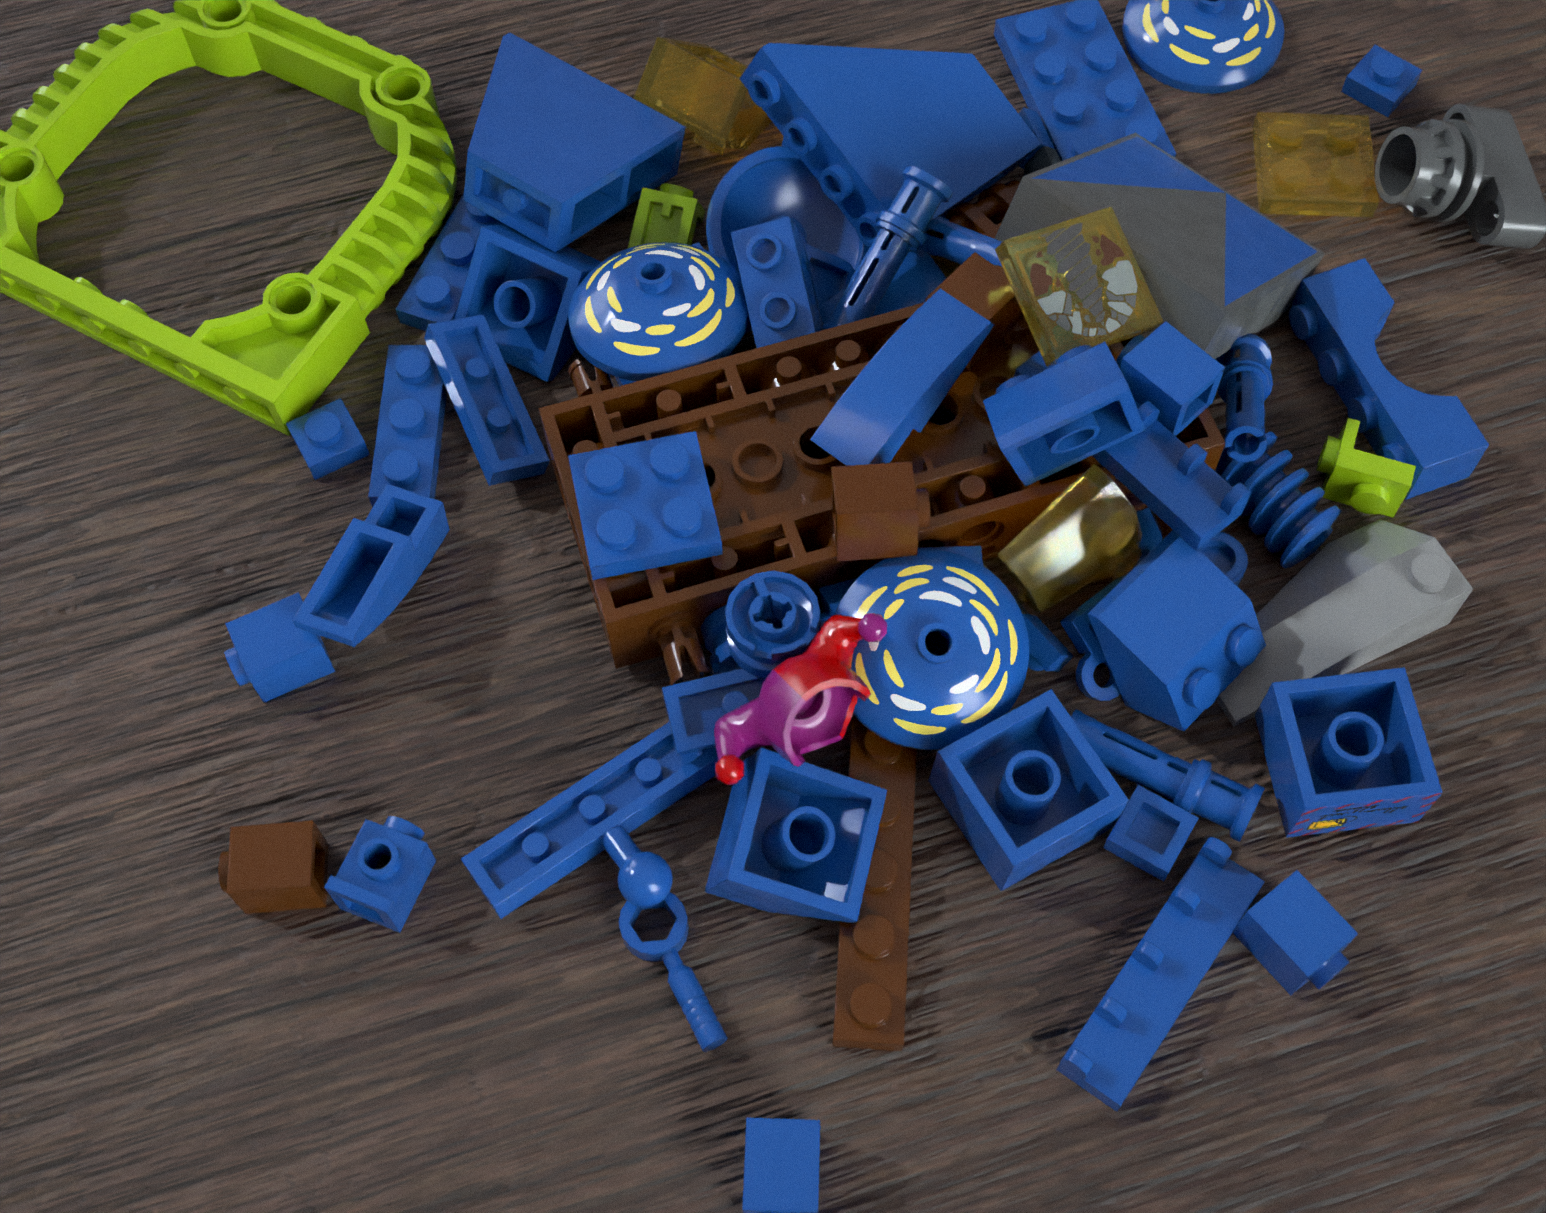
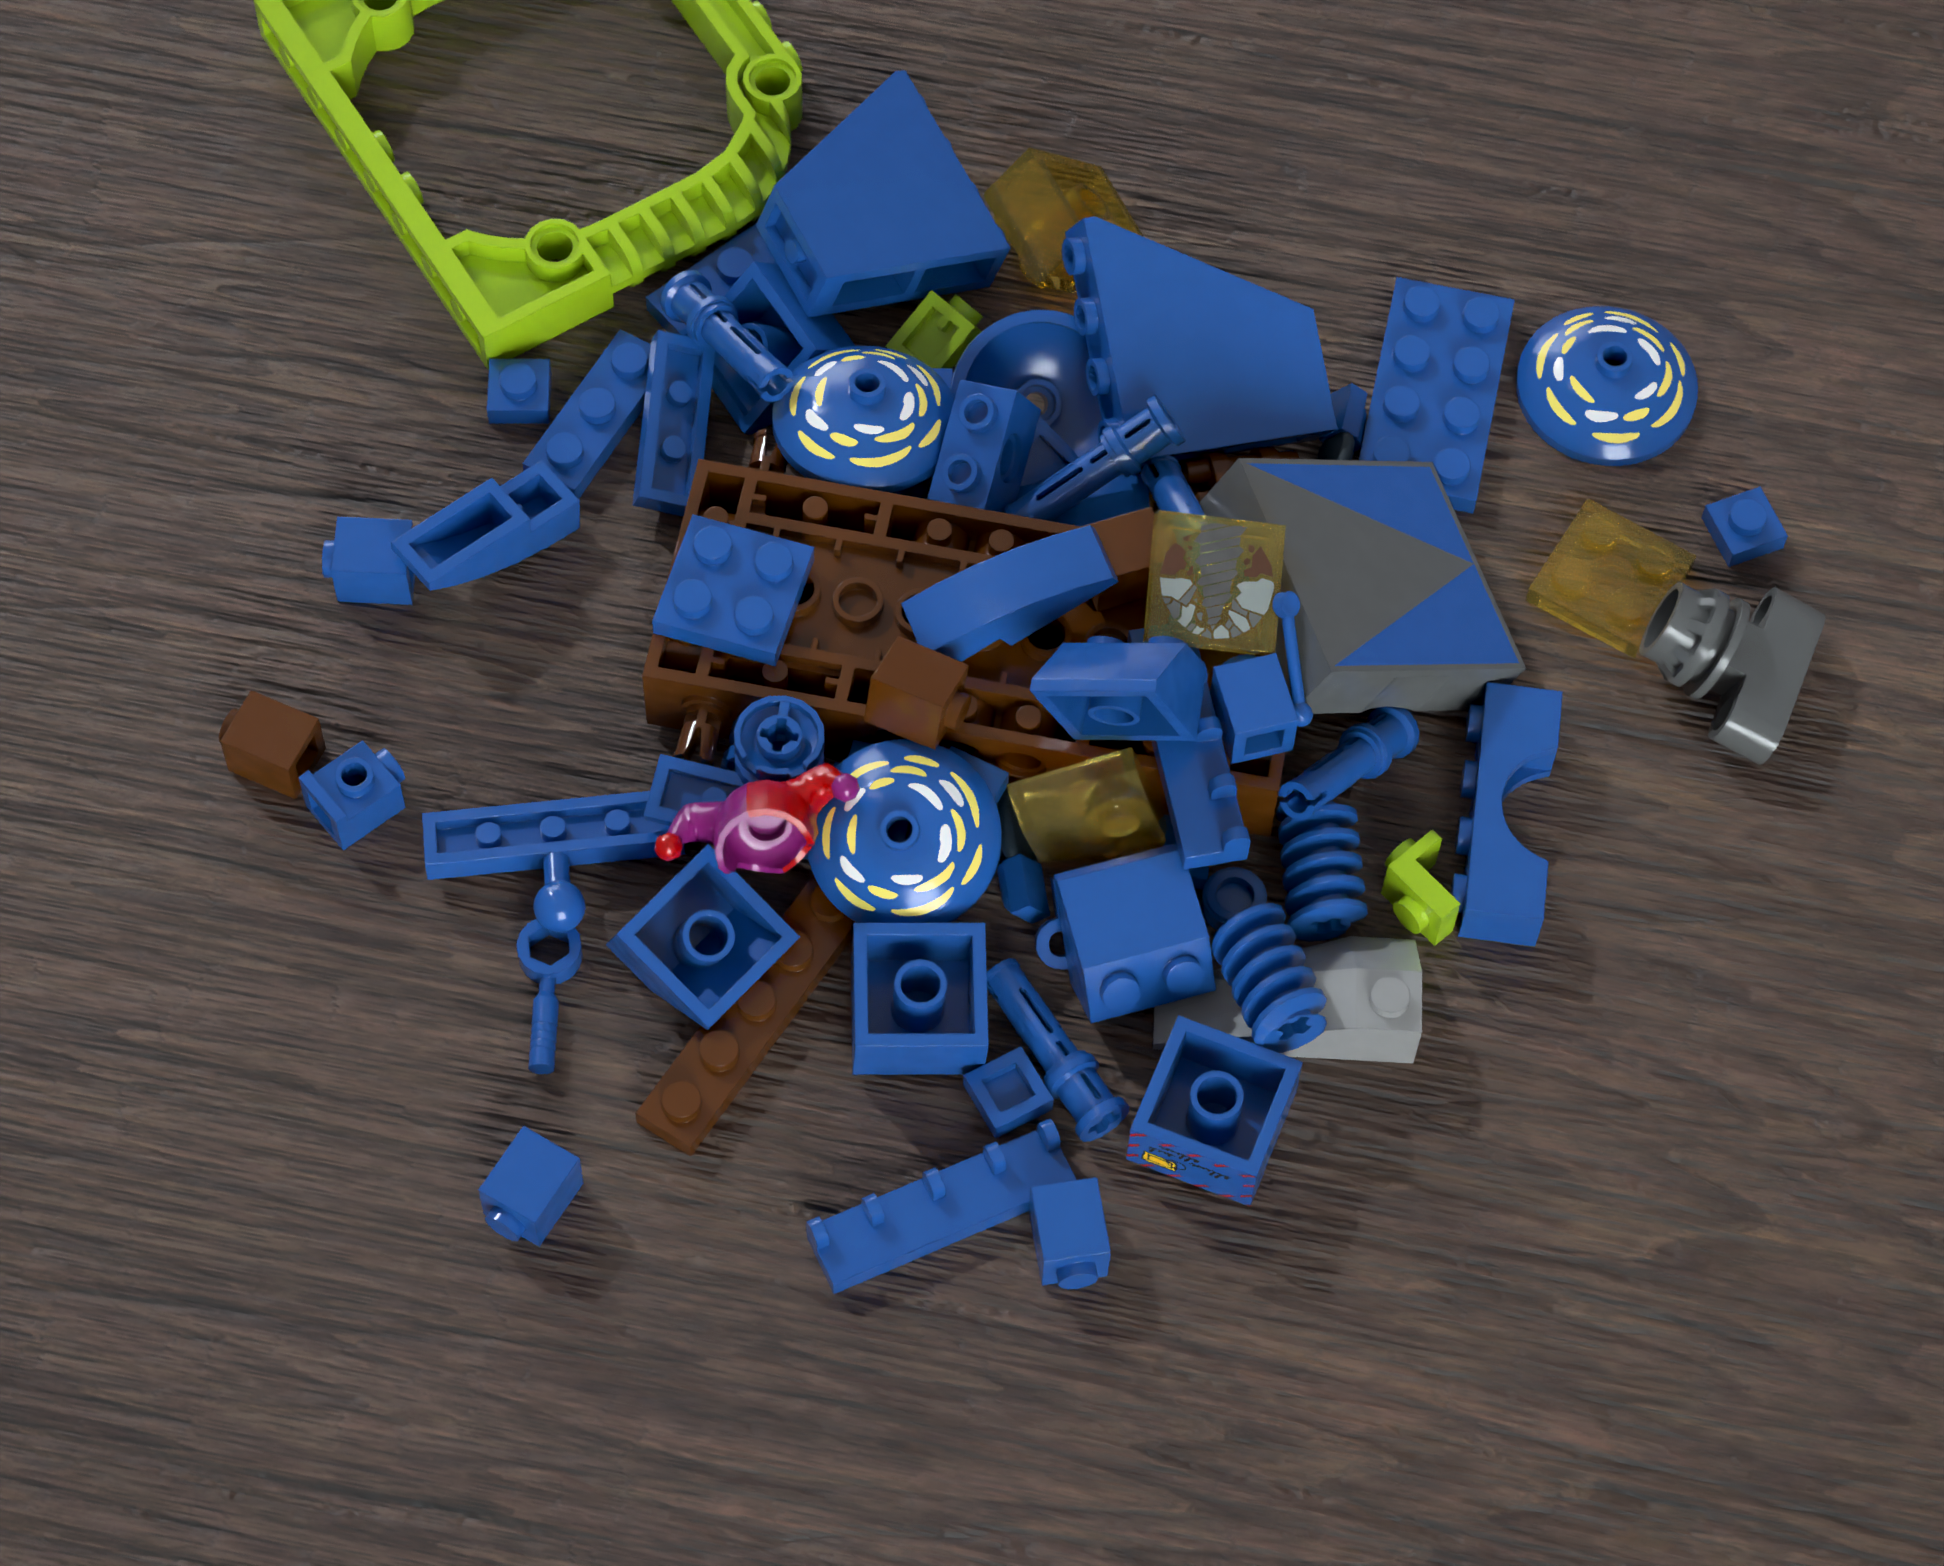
camera: 25 degrees right, 0 degrees up
(477, 295) = (714, 324): none -> blue pin
(1153, 278) = (1286, 606): none -> blue hinge
(1322, 609) = (1270, 978): none -> blue piece

